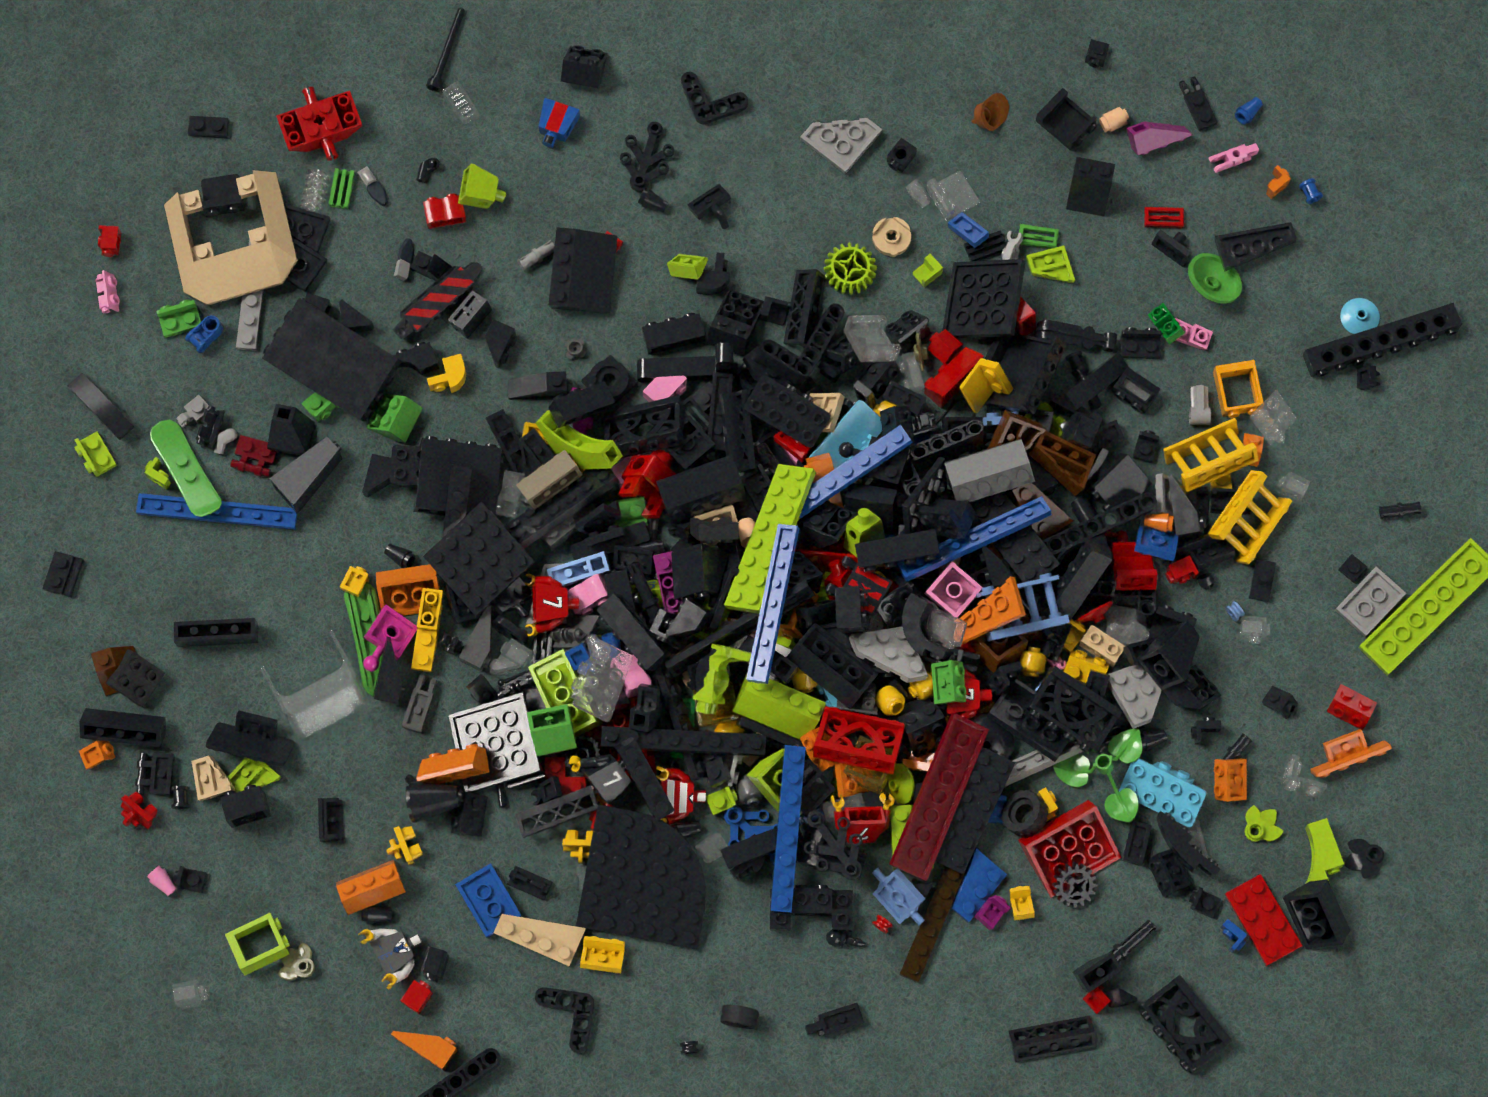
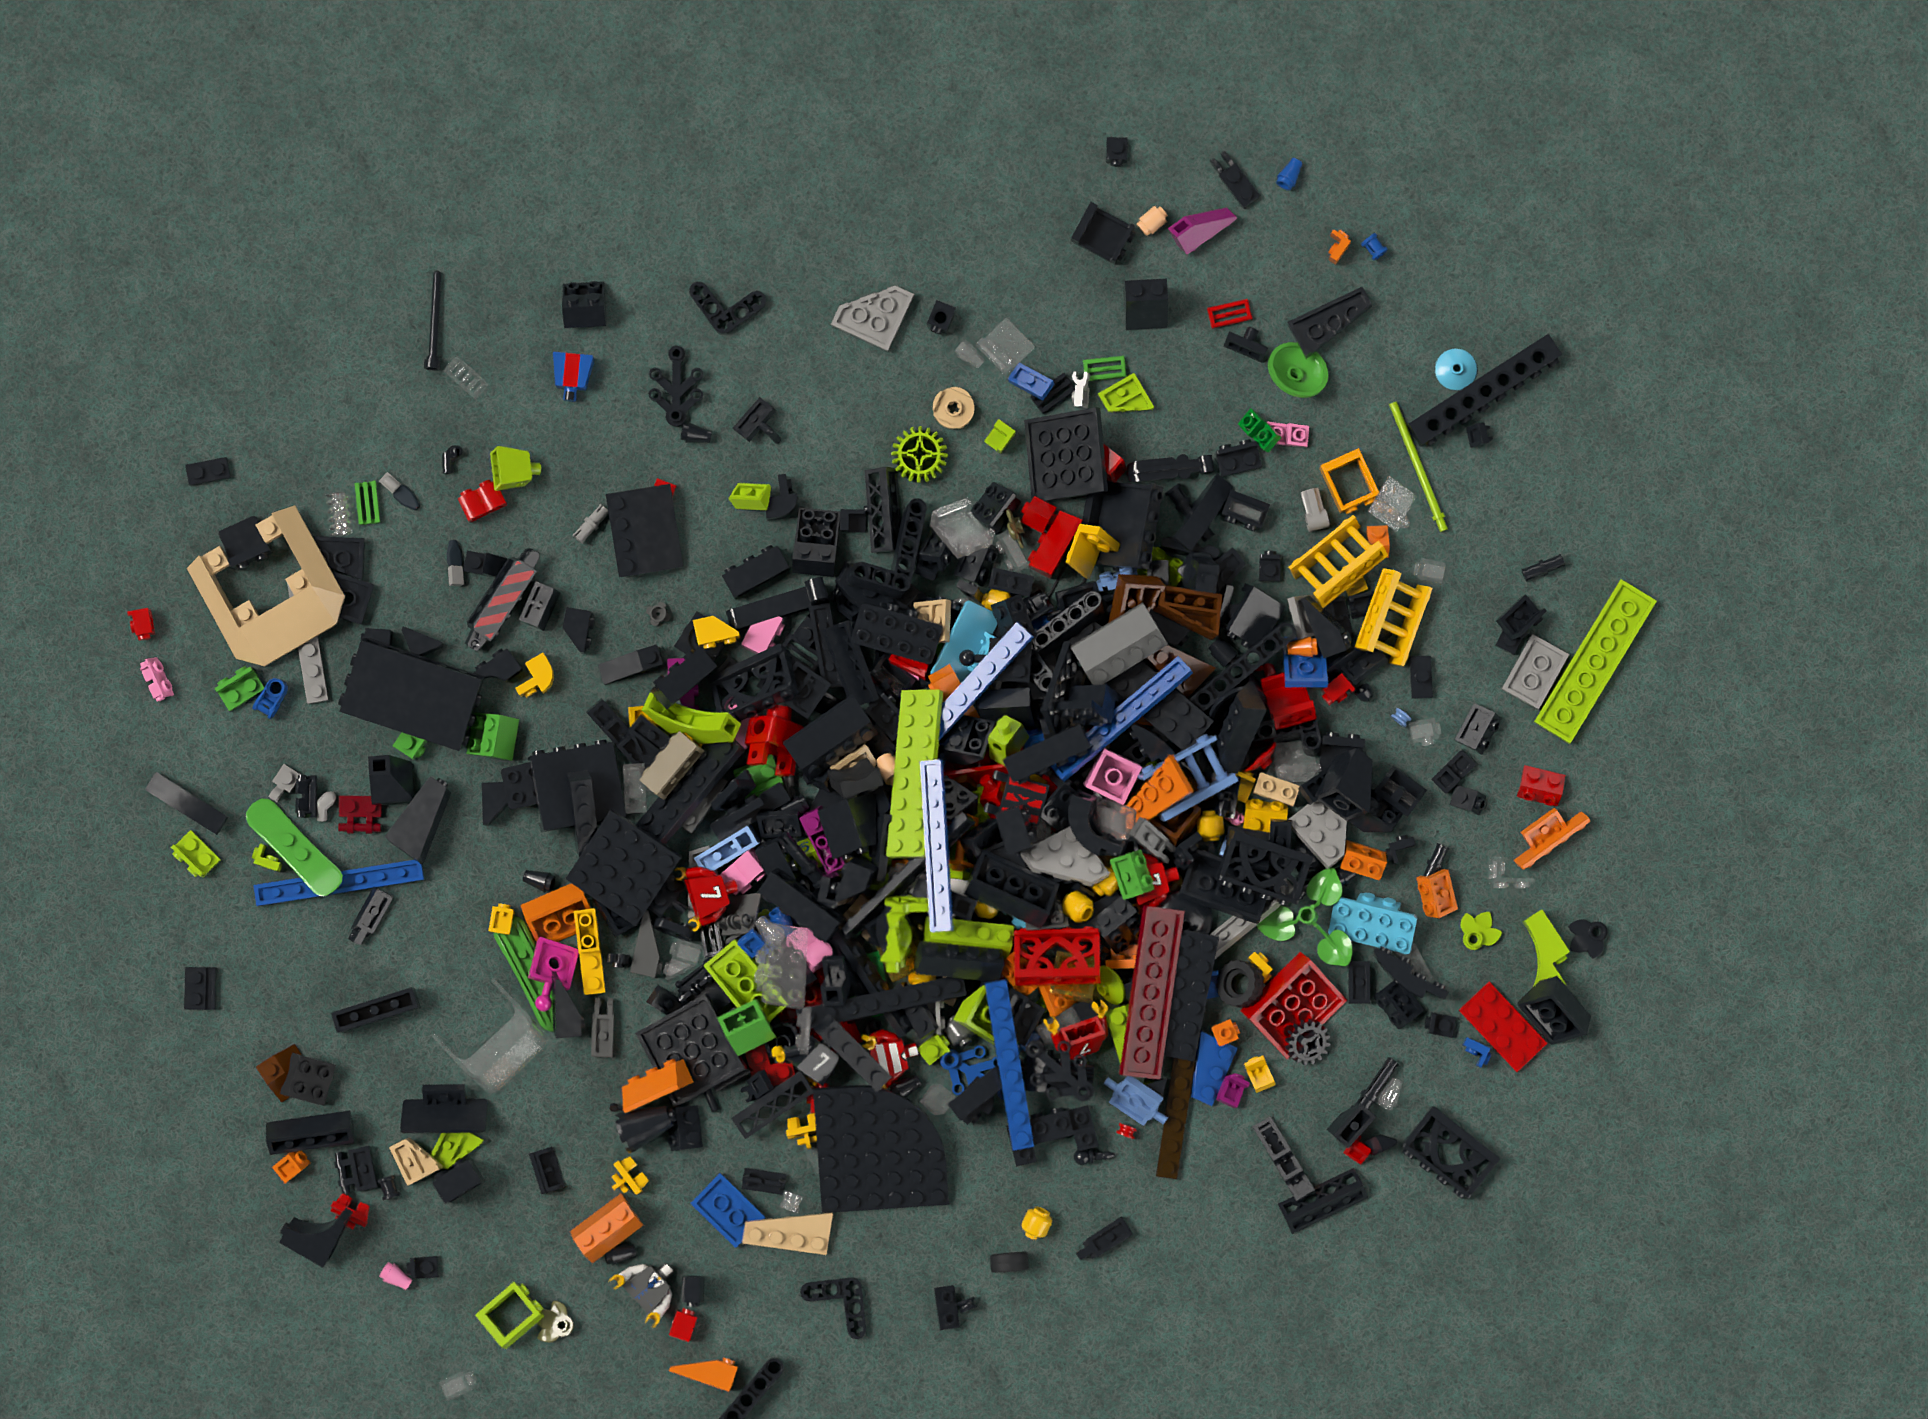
camera: 15 degrees left, 10 degrees up
(98, 827) = (315, 1240): none -> black arch
(236, 547) = (369, 915): none -> black hinge
(302, 125) = (311, 455): red slope -> none
(550, 907) = (791, 1201): none -> clear wheel
(602, 954) = (856, 1235): yellow bracket -> none
(606, 736) = (803, 1021): none -> clear plate
(621, 372) = (712, 631): none -> yellow slope
(669, 1044) = (946, 1307): none -> black hinge
(765, 719) = (958, 961): none -> black brick
(775, 987) = (1036, 1222): none -> yellow head
(975, 655) = (1151, 839): none -> dark grey hinge
(991, 112) = (1023, 246): dark orange piece -> none
(999, 855) = (1225, 1032): none -> orange bracket
(1025, 989) = (1284, 1159): none -> black slope
(1139, 957) = (1390, 1094): none -> clear cone
(1168, 731) = (1363, 860): none -> orange bracket
(1218, 676) = (1400, 790): none -> black window
(1234, 156) = (1293, 222): bright pink hinge -> none
(1273, 673) = (1453, 771): none -> black slope
(1305, 639) = (1478, 728): none -> bracket
(1313, 440) = (1437, 515): none -> lime bar
(1367, 548) = (1520, 618): none -> black bracket

